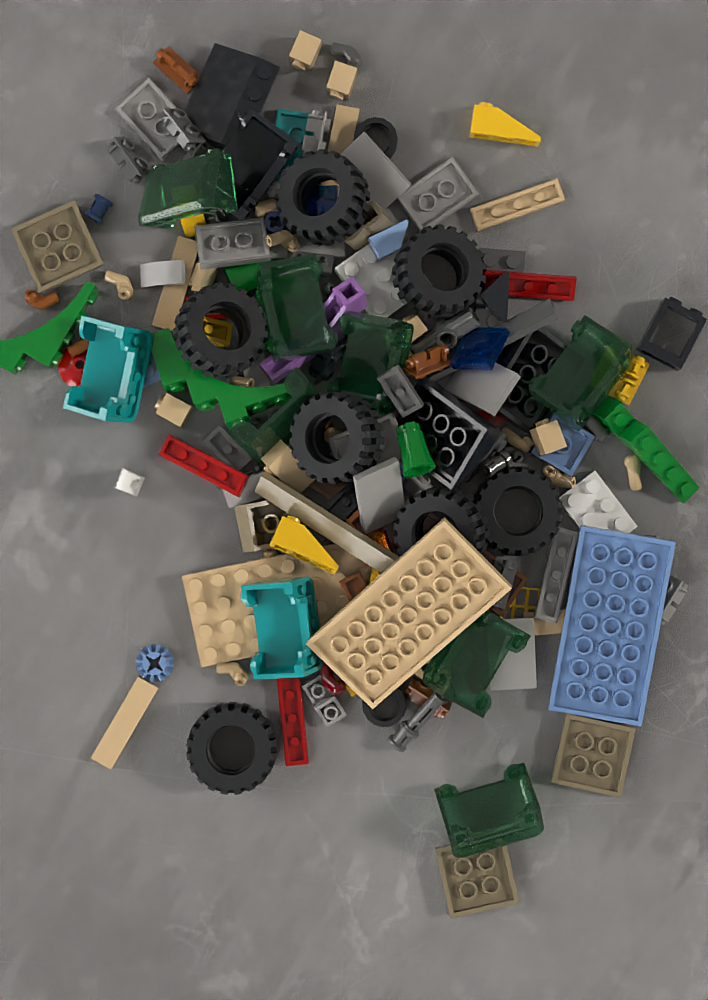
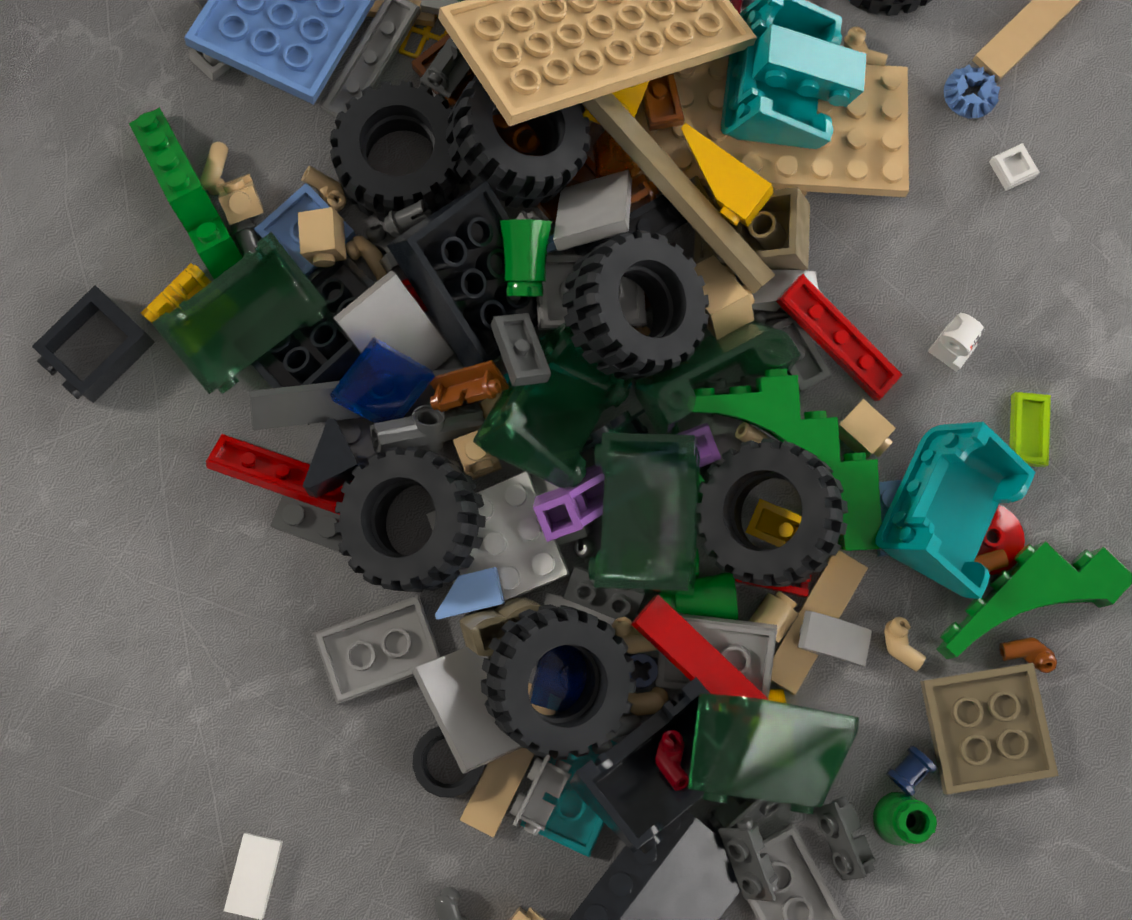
camera: 165 degrees left, 10 degrees down
(69, 441) = (1030, 427): none -> lime tile
(102, 184) = (891, 817): none -> green plant
(115, 617) = (1014, 167): none -> white tile
(243, 235) = (691, 651): none -> red tile
(245, 172) = (669, 759): none -> dark red arm
(266, 634) = (809, 66): none -> brick
(341, 81) = (475, 872): tan brick -> none
(471, 45) = (253, 876): none -> white tile
(496, 125) = (251, 732): yellow slope -> none
(517, 205) = (260, 602): tan tile -> none
(596, 506) = (284, 133): white plate -> none
(609, 452) = (239, 199): none -> tan brick

